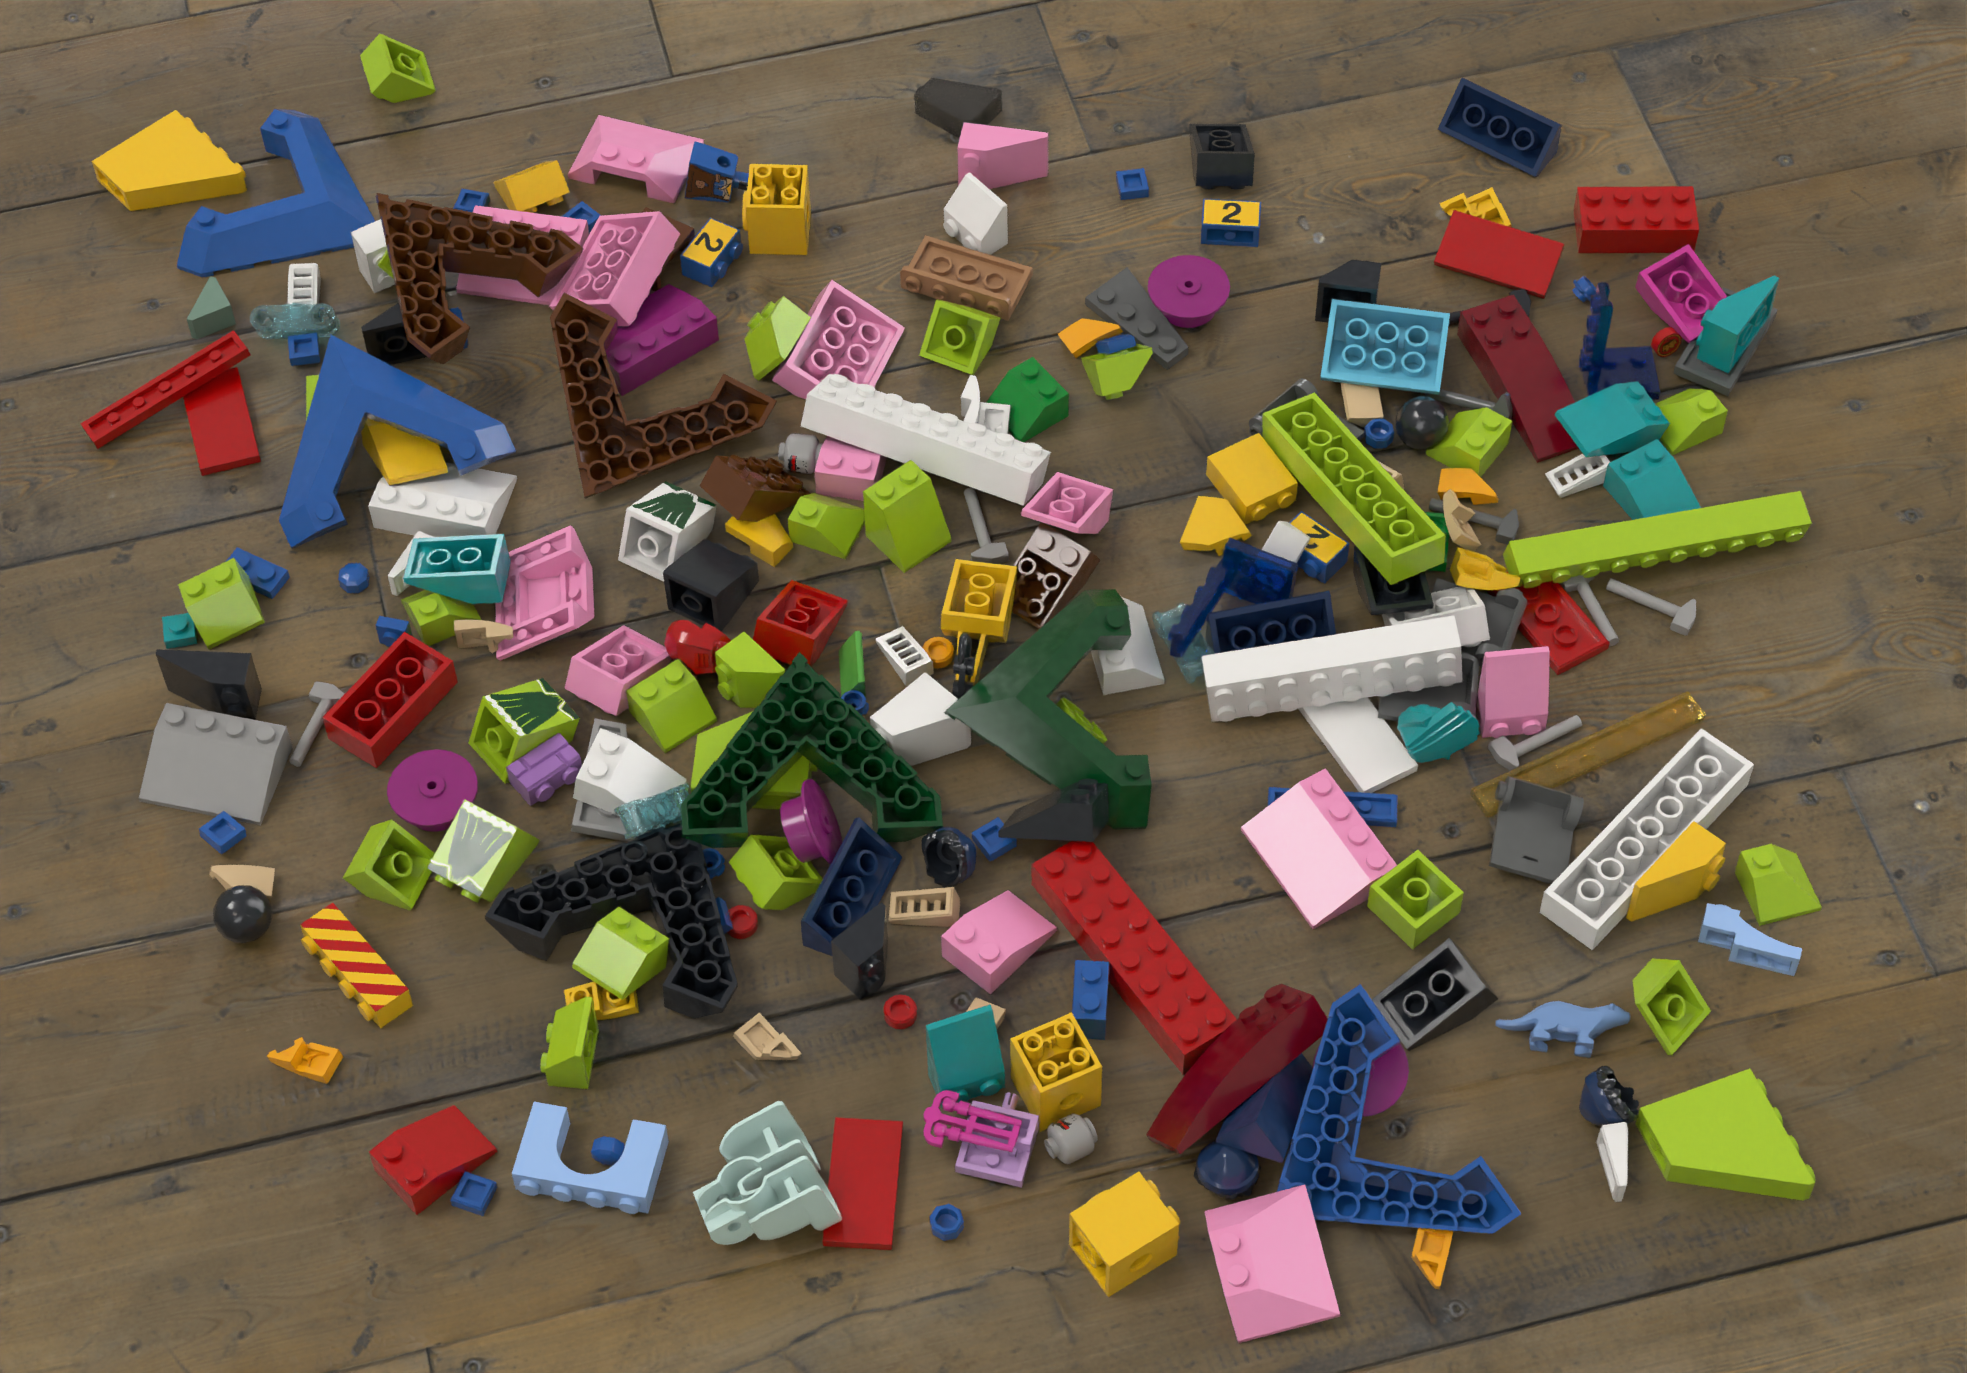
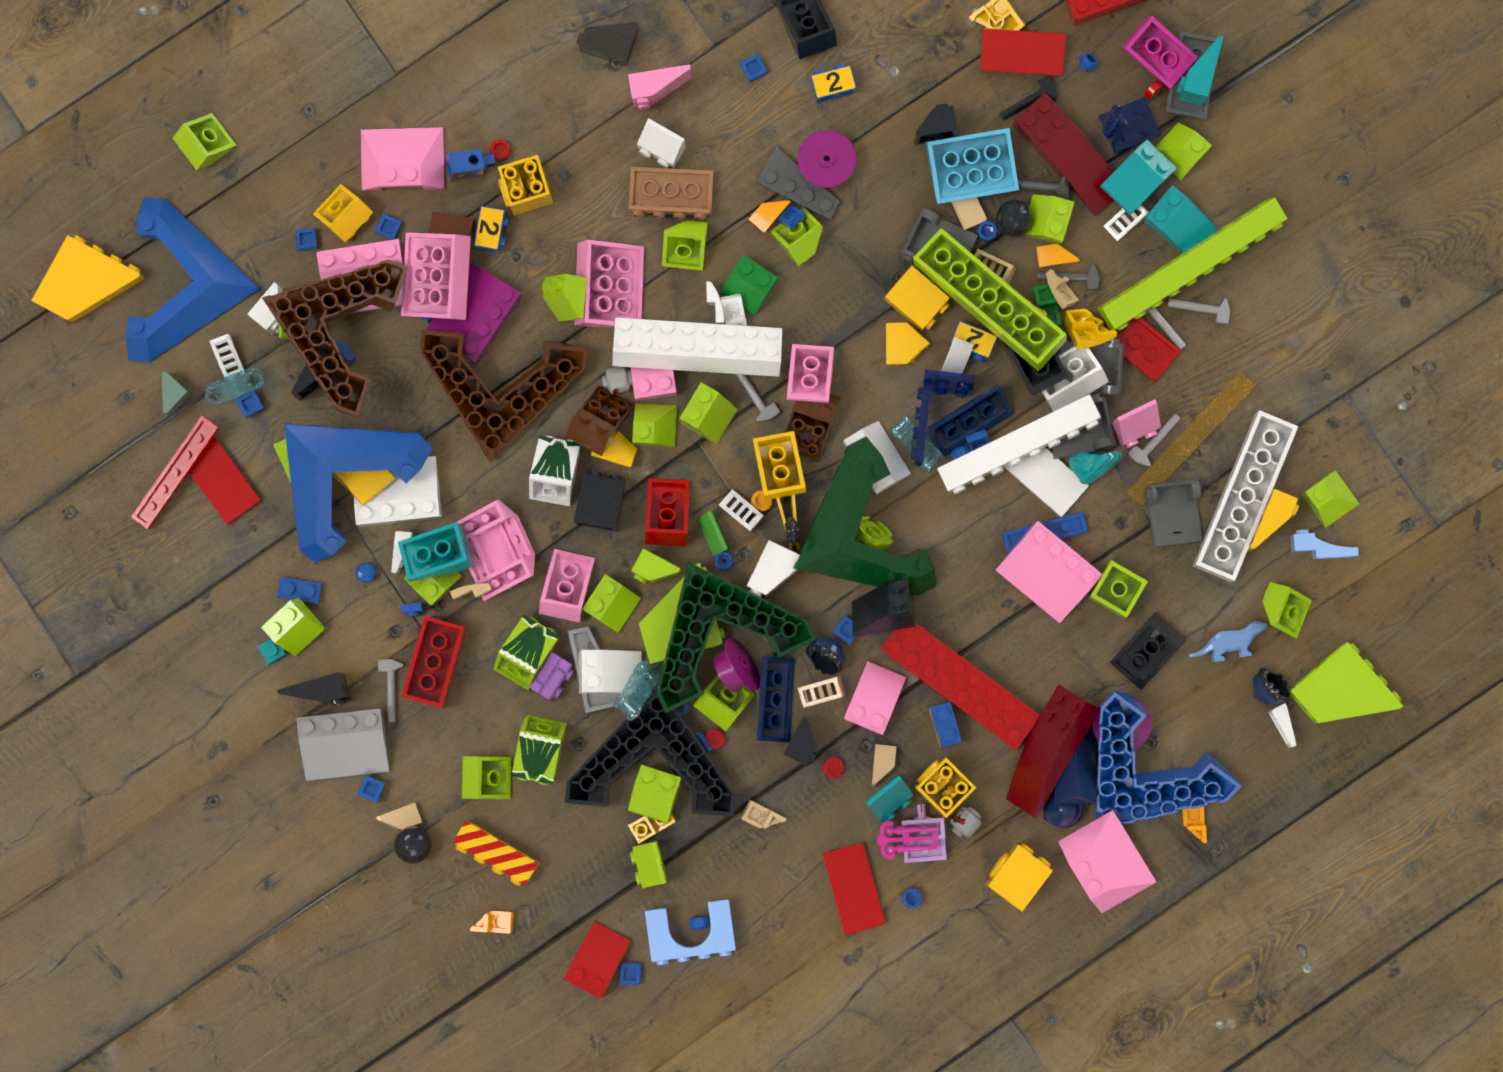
camera: 15 degrees left, 30 degrees up
(431, 788) = (491, 721): magenta piece -> none
(694, 645) = (615, 558): red helmet -> none
(768, 1182) = (818, 931): light aqua piece -> none

